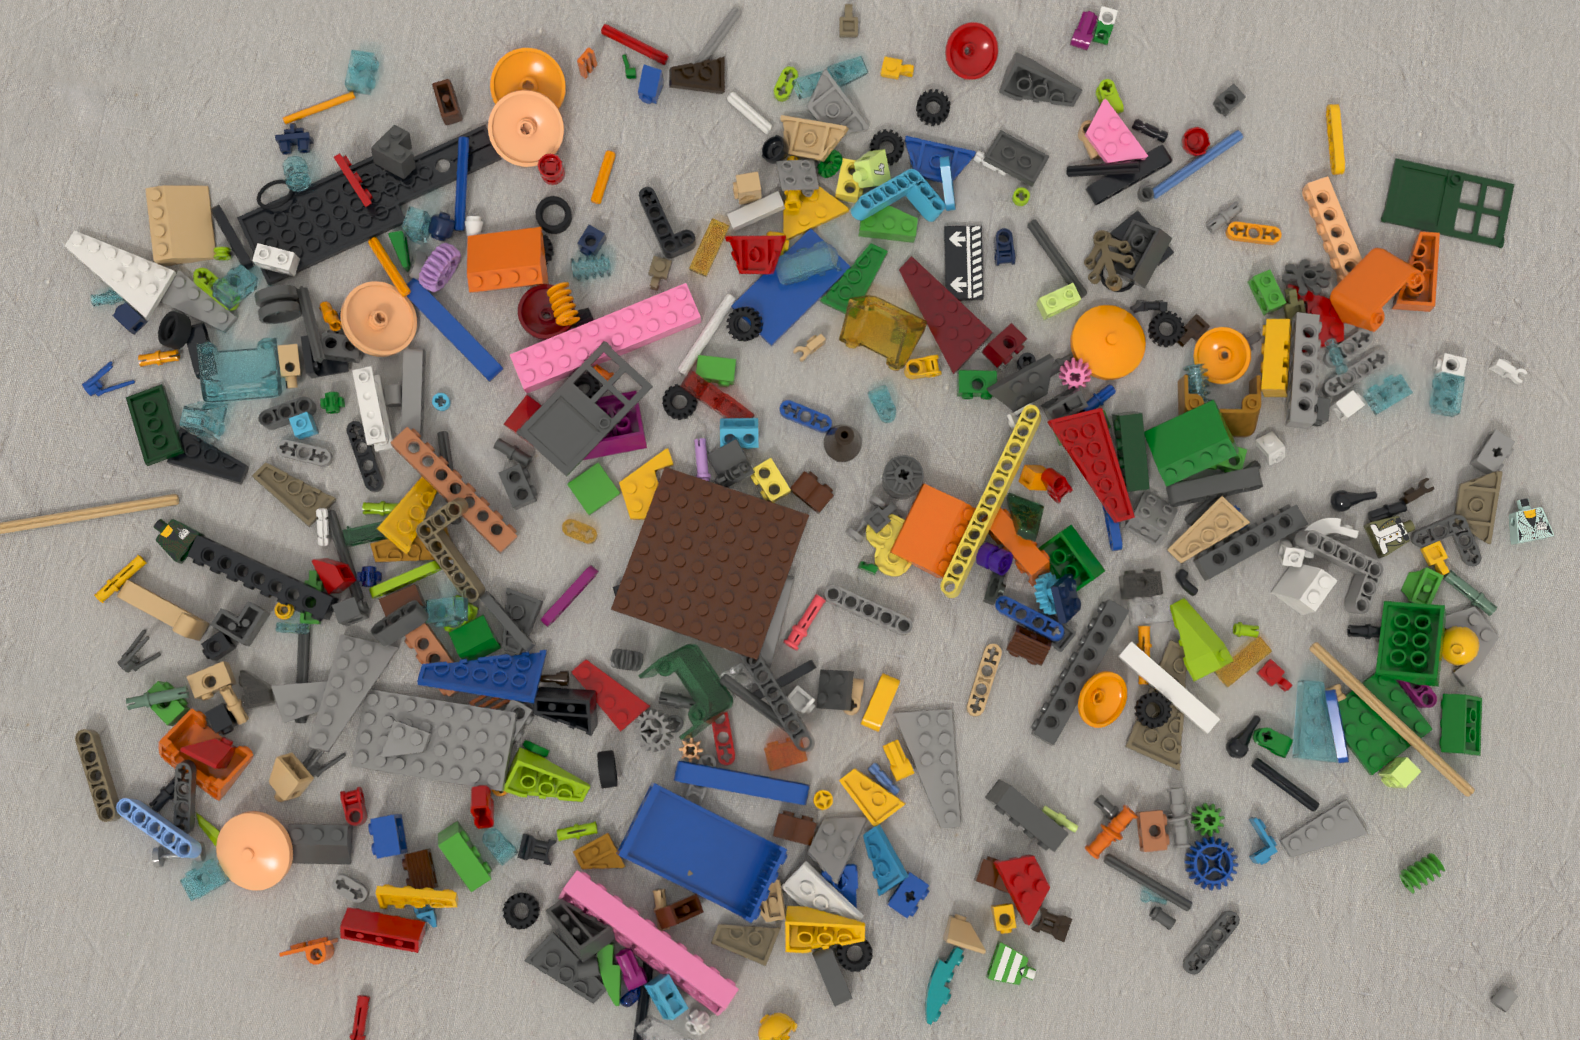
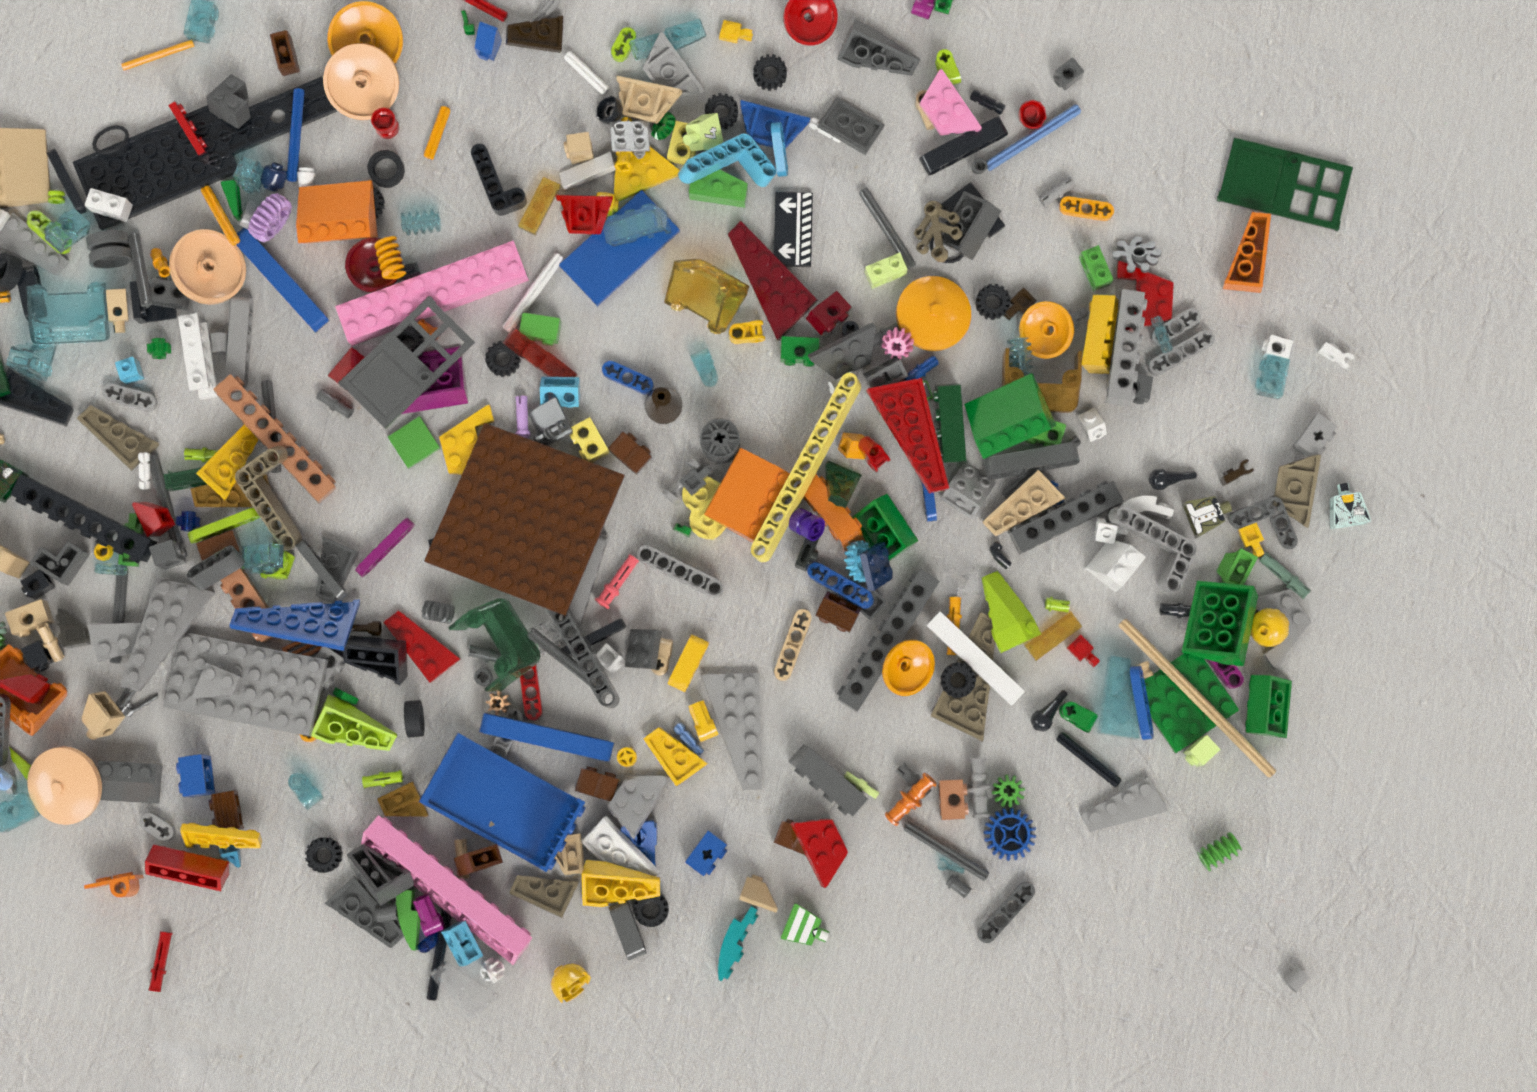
camera: 10 degrees right, 0 degrees up
(278, 412) = (106, 354): dark grey beam -> none
(292, 137) = (132, 83): dark blue hips -> none
(296, 173) = (132, 120): clear light blue wheel -> none
(354, 804) = (164, 742): red piece -> none
(361, 458) = (185, 404): black beam -> none
(436, 397) = (262, 346): medium azure bush -> none
(464, 856) = (270, 799): bright green wedge -> none
(474, 639) = (289, 586): green slope -> none
(482, 807) = (289, 751): red brick -> none
(514, 488) = (335, 439): dark grey brick -> none
(528, 846) = (333, 793): black piece -> none
(577, 535) = (400, 480): clear yellow beam -> none
(589, 59) = (428, 16): orange tile -> none
(591, 233) = (422, 188): dark blue brick -> none
(650, 739) = (462, 691): light grey gear -> none
(659, 270) = (488, 227): dark tan plate -> none
(734, 327) = (580, 283): black tyre -> none
(784, 754) = (590, 711): clear orange brick -> none
(814, 344) = (639, 305): tan plate -> none
(857, 279) = (685, 242): green wing -> none
(886, 864) = (686, 822): dark azure wing -> none
(1000, 909) = (794, 872): yellow brick -> none
(1004, 251) = (834, 218): dark blue piece -> none
(1016, 200) = (858, 161): lime bush -> none
(1060, 925) = (856, 891): dark brown piece -> none
(1103, 169) = (936, 139): black axle -> none
(1130, 589) = (964, 559): clear smoke brick -> none
(1142, 305) = (970, 277): black piece -> none
(1263, 855) = (1062, 828): dark azure bracket -> none
(1293, 305) = (1122, 281): olive plate -> none
(1323, 189) = (1158, 166): light nougat brick -> none
(1335, 139) = (1174, 125): yellow beam -> none
(1347, 405) = (1171, 384): white brick -> none
(1370, 286) = (1196, 265): orange windscreen -> none
(1387, 511) = (1206, 491): black axle -> none
(1388, 396) = (1214, 377): clear light blue brick -> none

